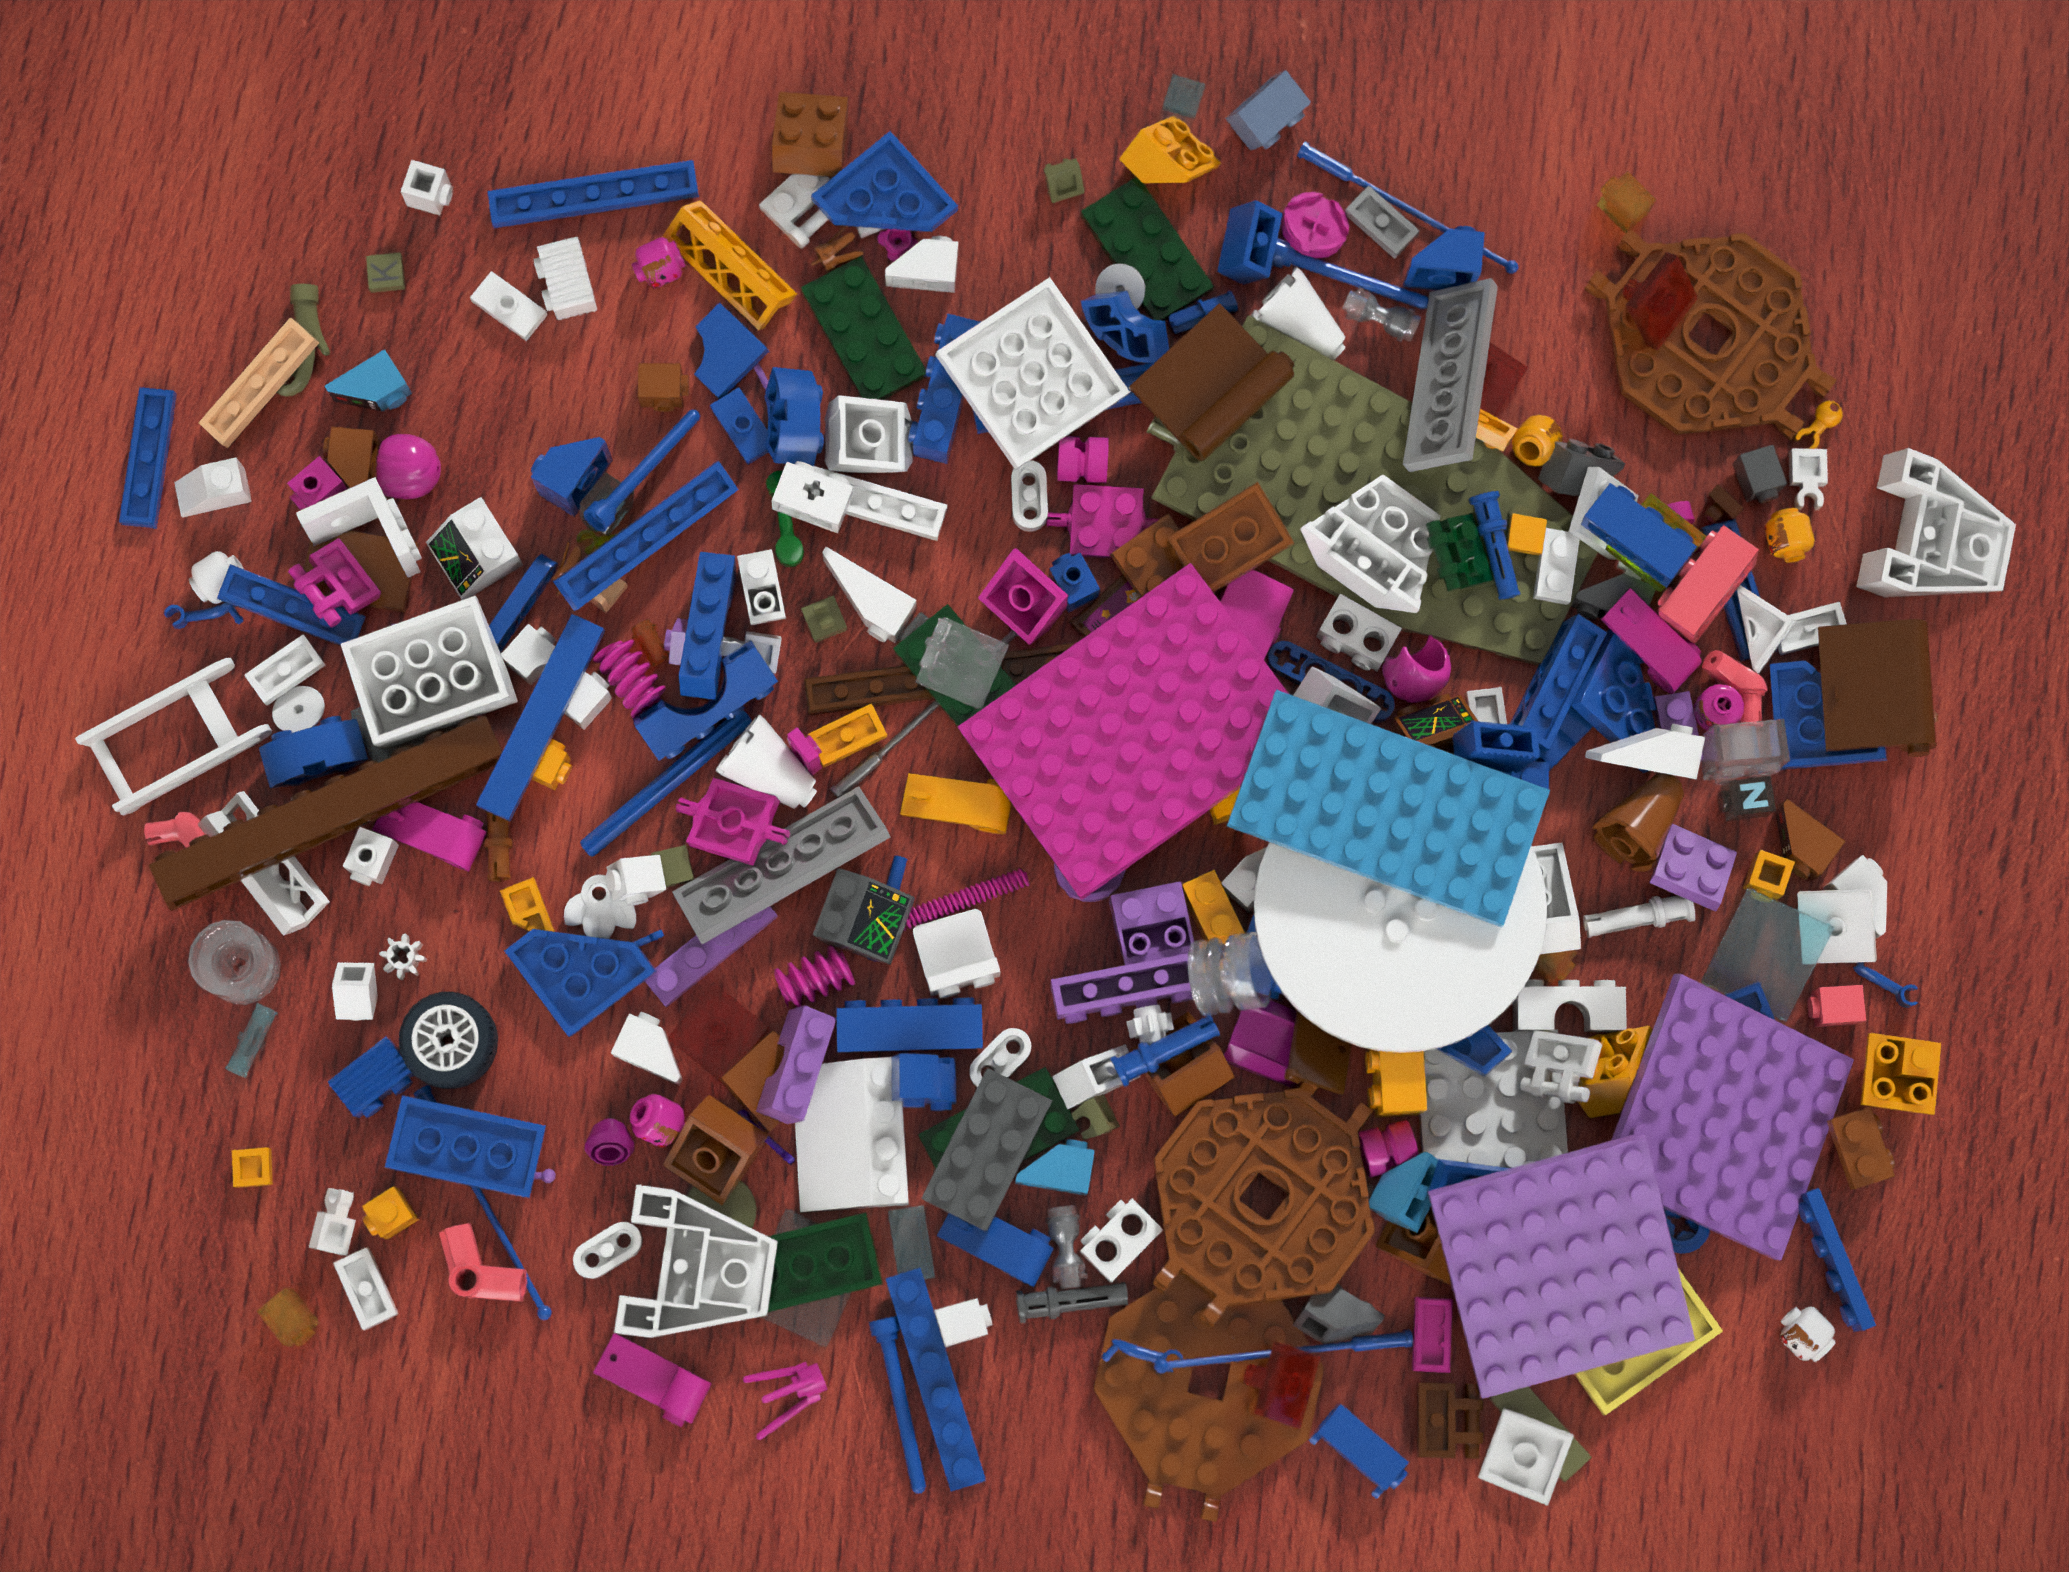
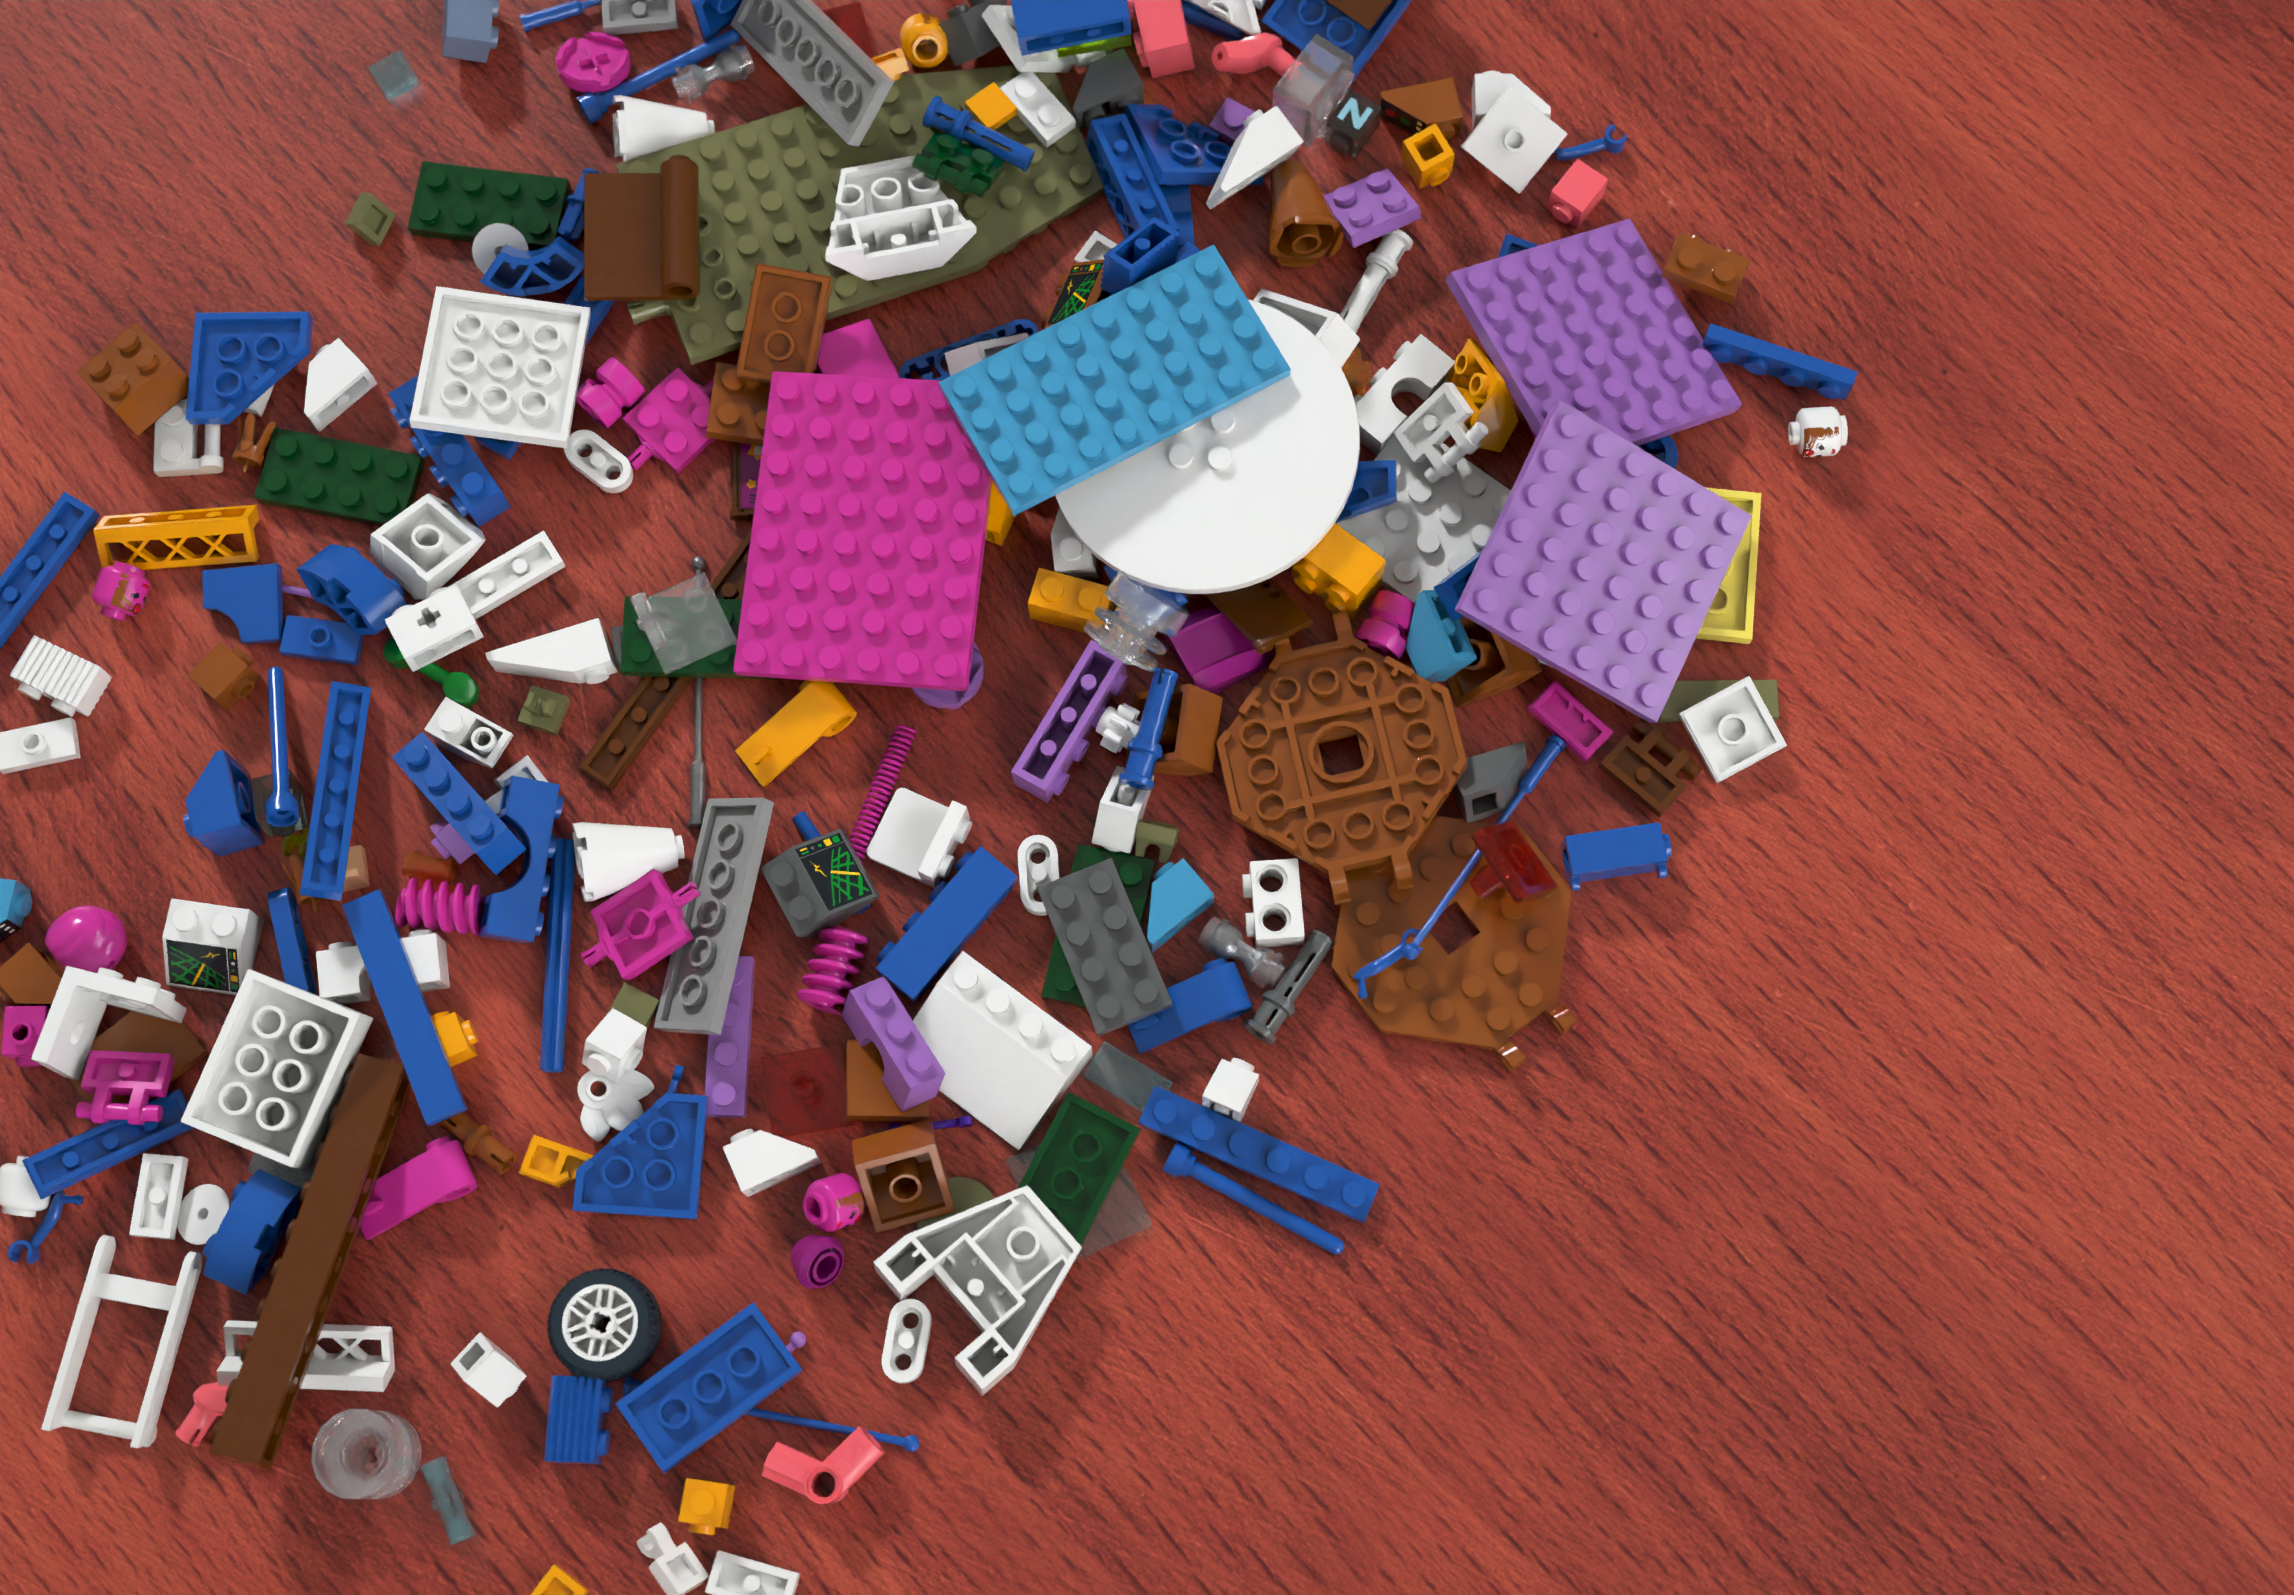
camera: 40 degrees left, 5 degrees down
(370, 857) = (386, 1259): white brick -> none
(413, 956) = (492, 1294): white gear -> none
(653, 1379) = (1051, 1395): dark pink door -> none
(805, 750) = (637, 811): dark pink plate -> none
(806, 1383) = (1167, 1266): dark pink plant -> none
(848, 735) = (657, 772): light orange plate -> none
(888, 237) = (282, 390): dark pink plate -> none
(924, 1081) = (1000, 947): blue brick -> none
(1024, 597) = (677, 527): dark pink slope -> none
(1075, 579) = (701, 485): blue brick -> none
(1151, 923) = (1036, 656): medium lavender slope -> none
(1168, 154) = (425, 122): light orange slope -> none
(1249, 242) = (559, 119): blue brick -> none
(1363, 625) = (946, 293): white brick -> none
(1420, 674) = (1026, 282): dark pink piece -> none
(1654, 641) = (1165, 85): dark pink door -> none
(1715, 697) = (1257, 83): dark pink head -> none
(1768, 946) = (1485, 201): clear light blue piece -> none
(1901, 1074) = (1673, 187): light orange slope -> none

